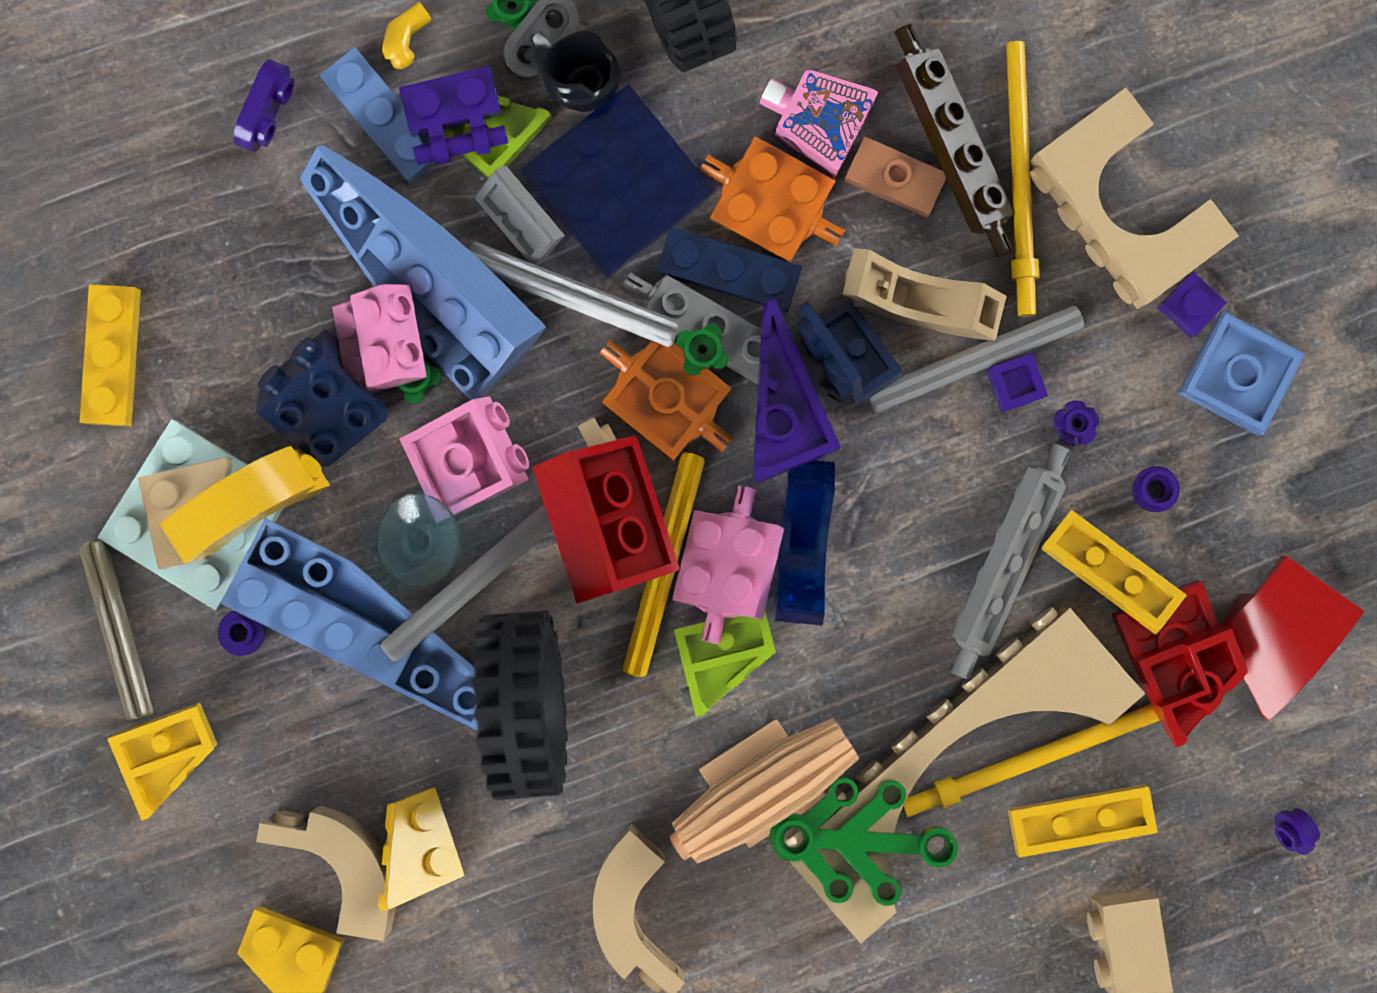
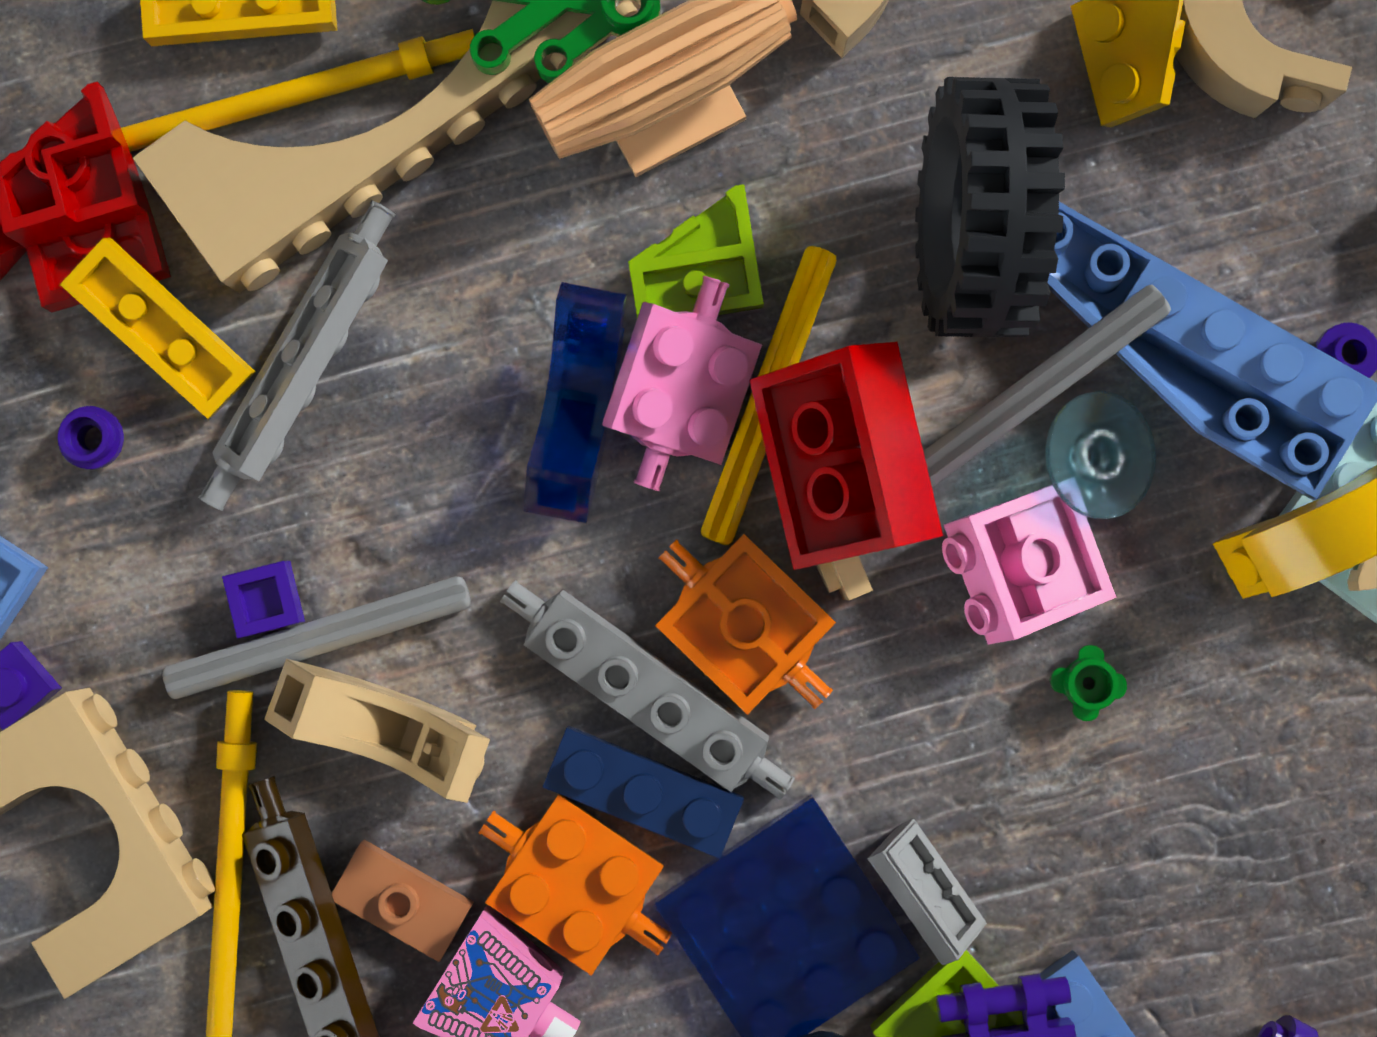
camera: 170 degrees left, 0 degrees up
(318, 401) = (1227, 656): dark blue bracket -> none
(380, 337) = (1135, 735): bright pink plate -> none
(461, 308) = (1065, 821): medium blue wedge -> none
(578, 296) = (863, 775): light grey axle -> none
(708, 337) = (679, 696): green plate -> none
(789, 414) = (579, 580): dark purple wing -> none
(850, 351) = (486, 662): dark blue bracket -> none
(1064, 423) = (205, 536): dark purple plate -> none

